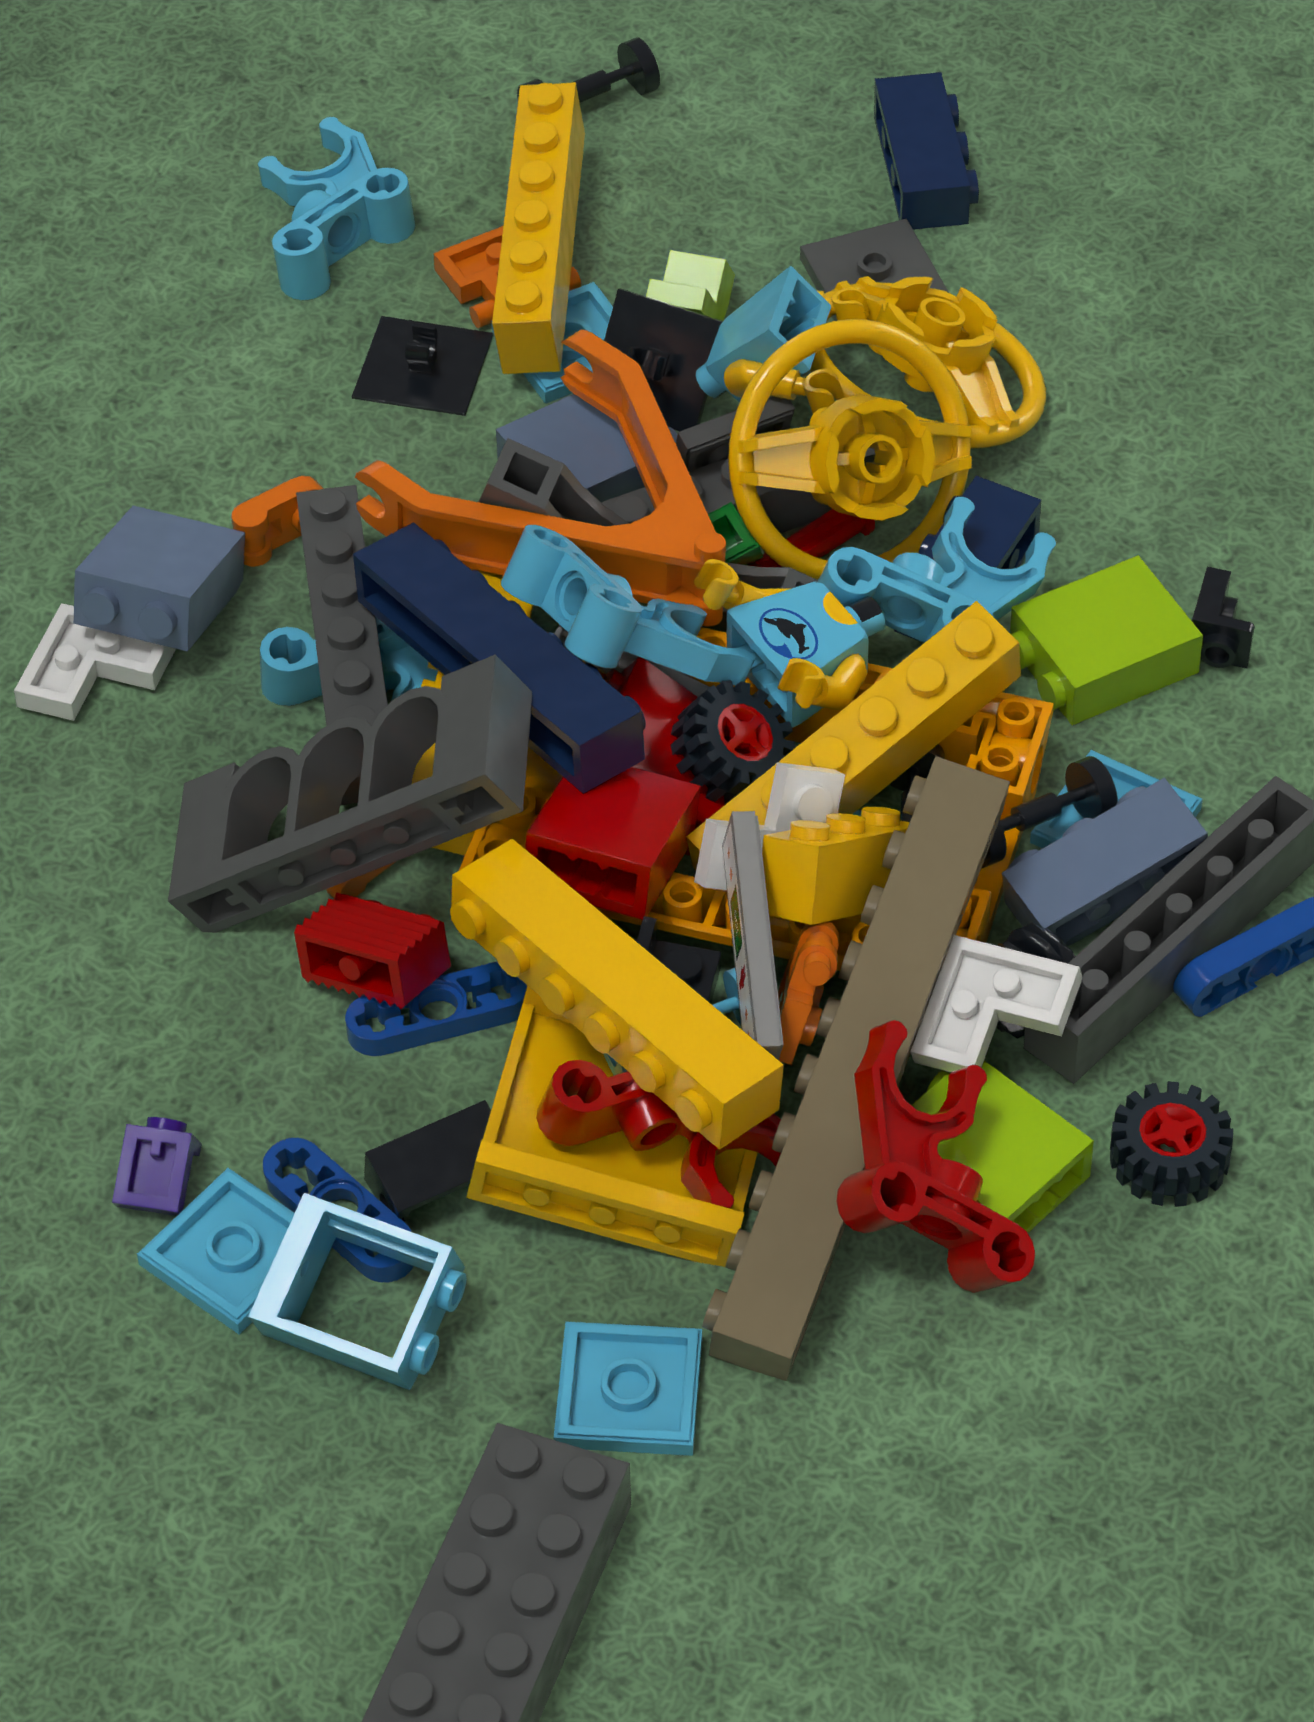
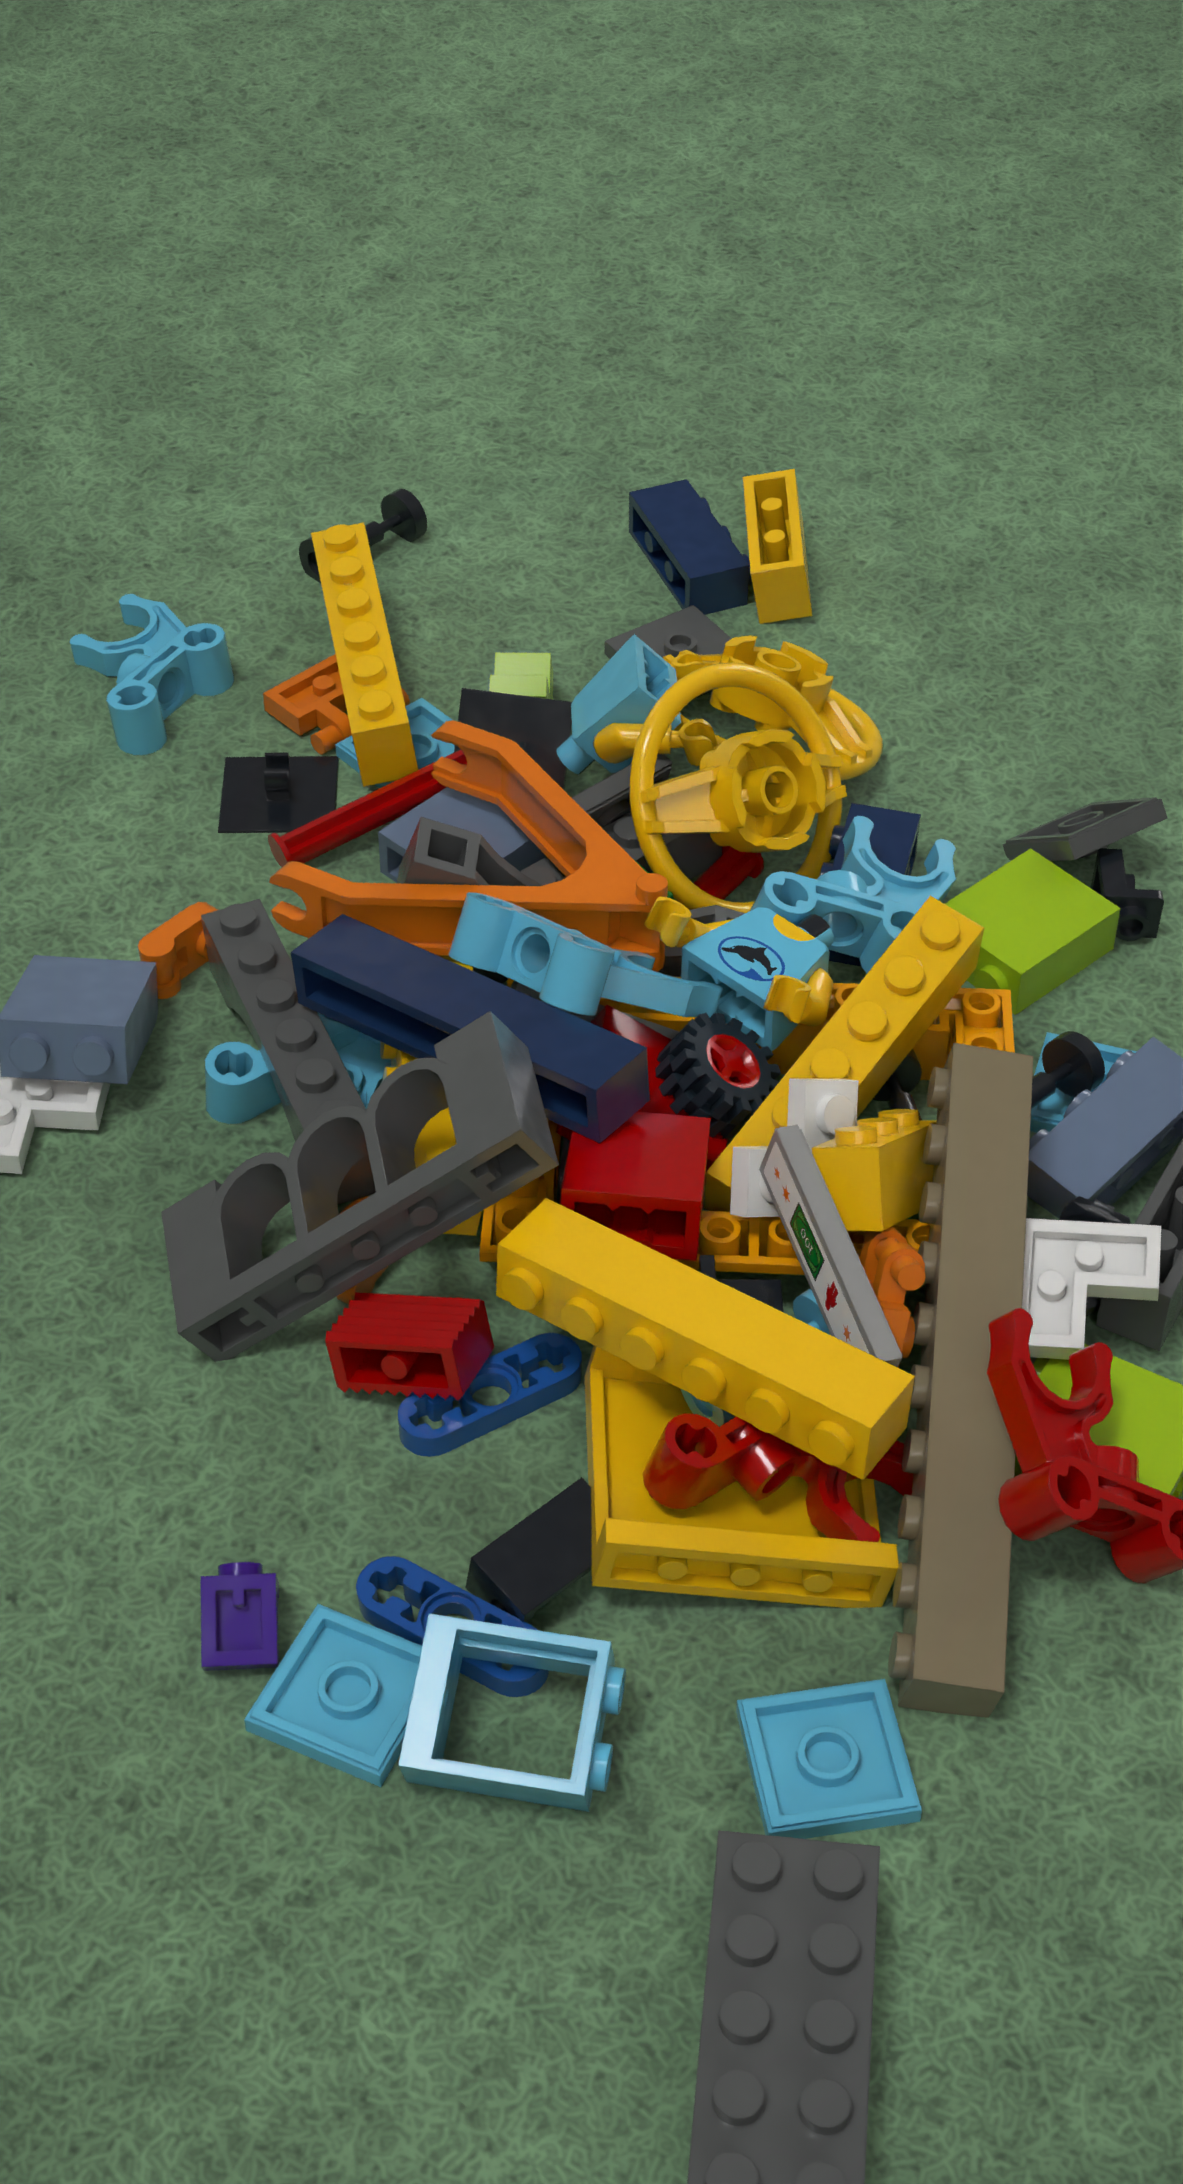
camera: 15 degrees left, 5 degrees down
(482, 408) = (358, 816): none -> red axle
(1011, 165) = (777, 546): none -> yellow brick
(1207, 543) = (1087, 829): none -> dark grey plate

